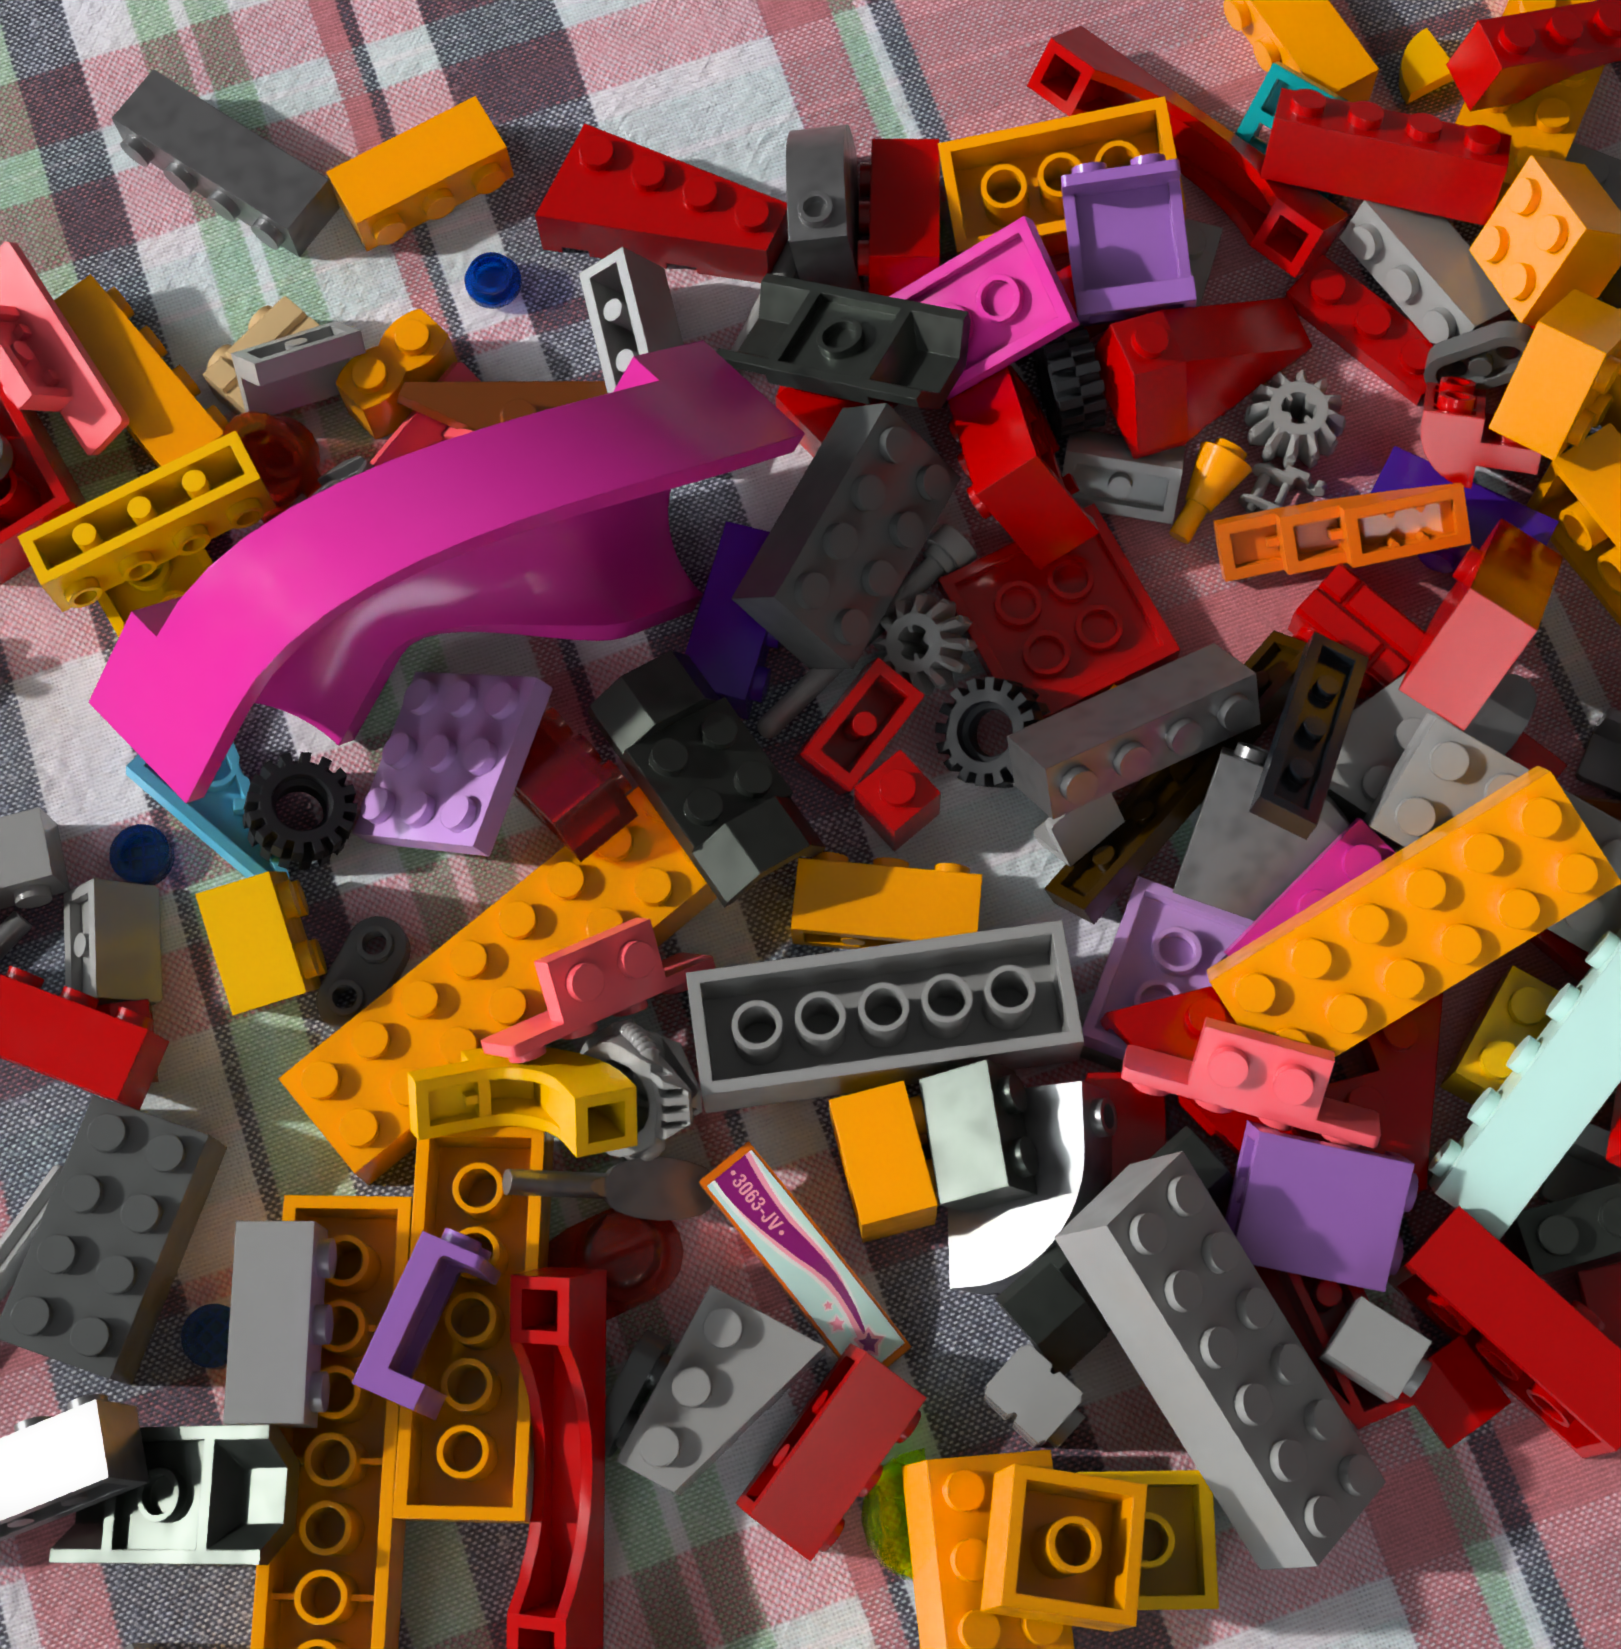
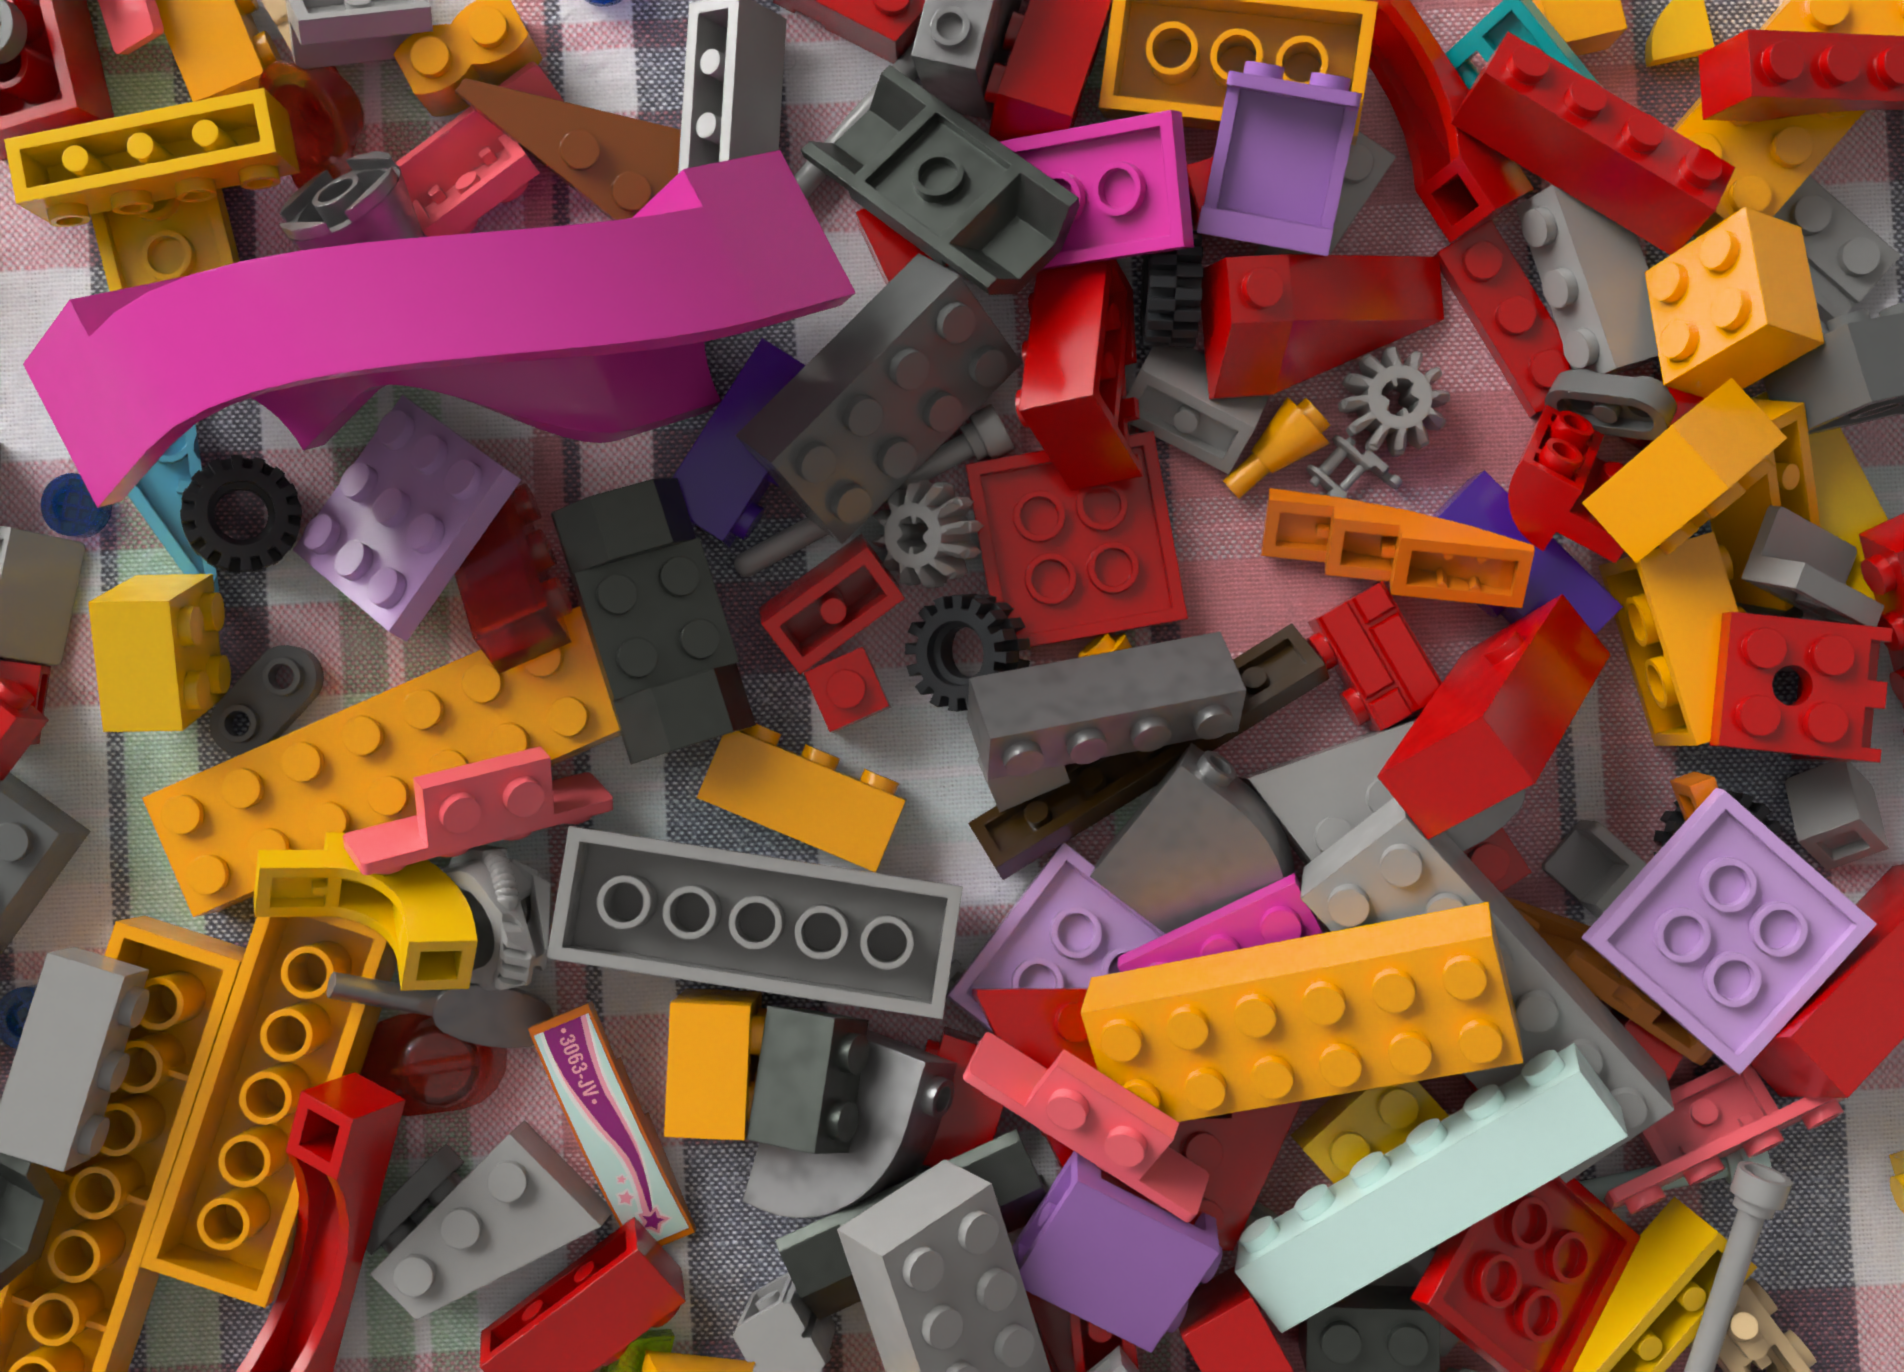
camera: 15 degrees right, 15 degrees up
(414, 1315) = (161, 1159): medium lavender panel -> none
(1309, 736) = (1276, 775): black plate -> none

